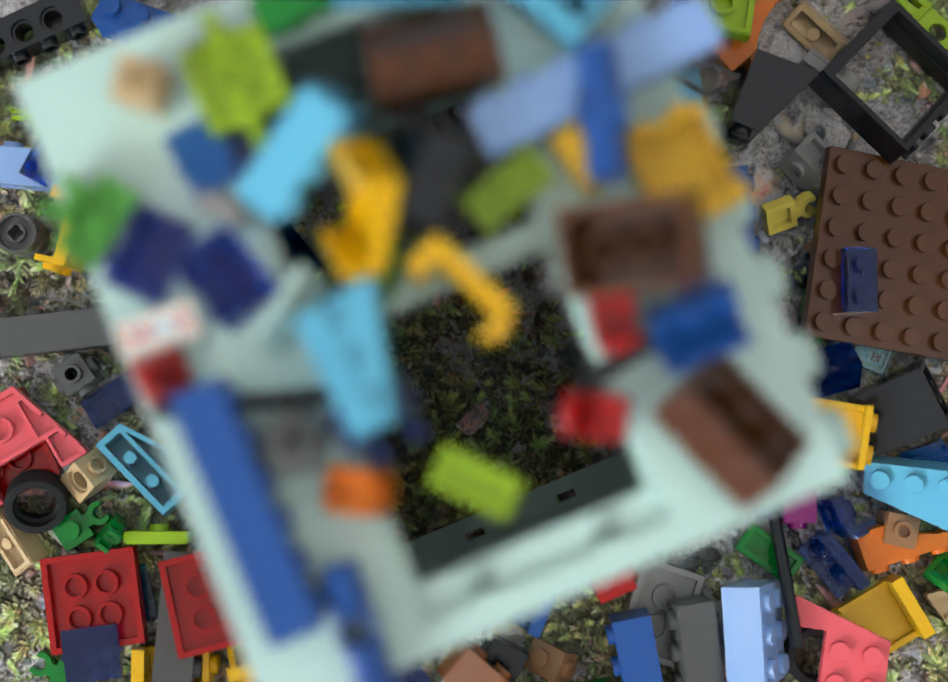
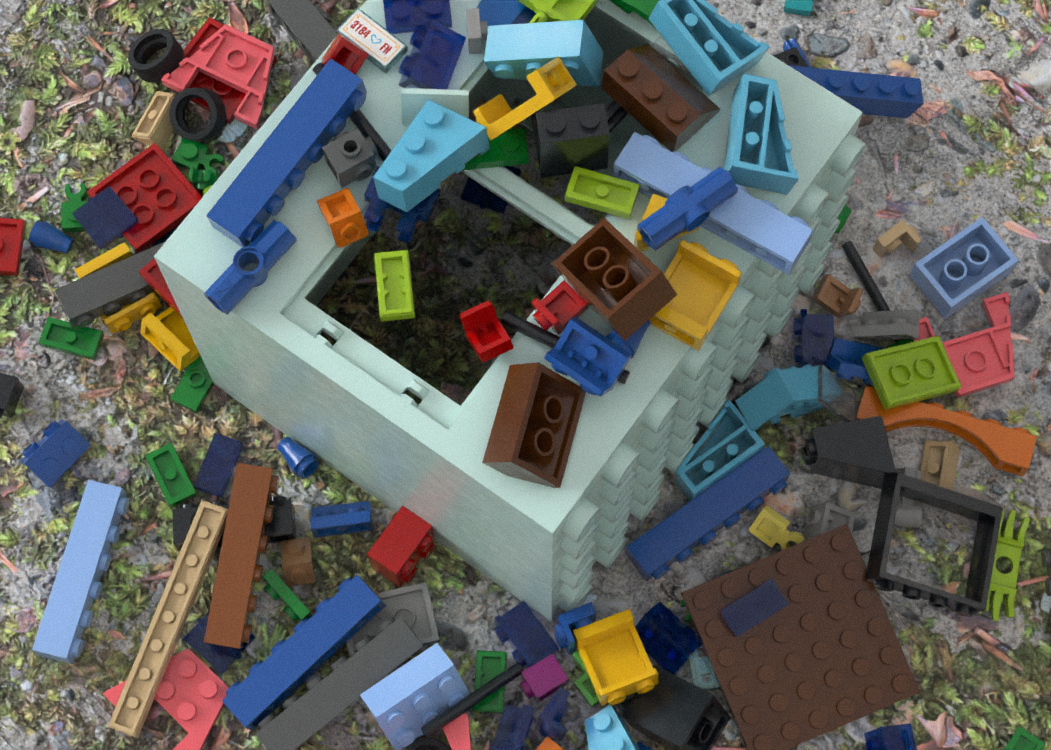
camera: 65 degrees right, 15 degrees down
(88, 475) = (235, 135): tan brick -> none
(440, 255) = (522, 169): yellow panel -> none

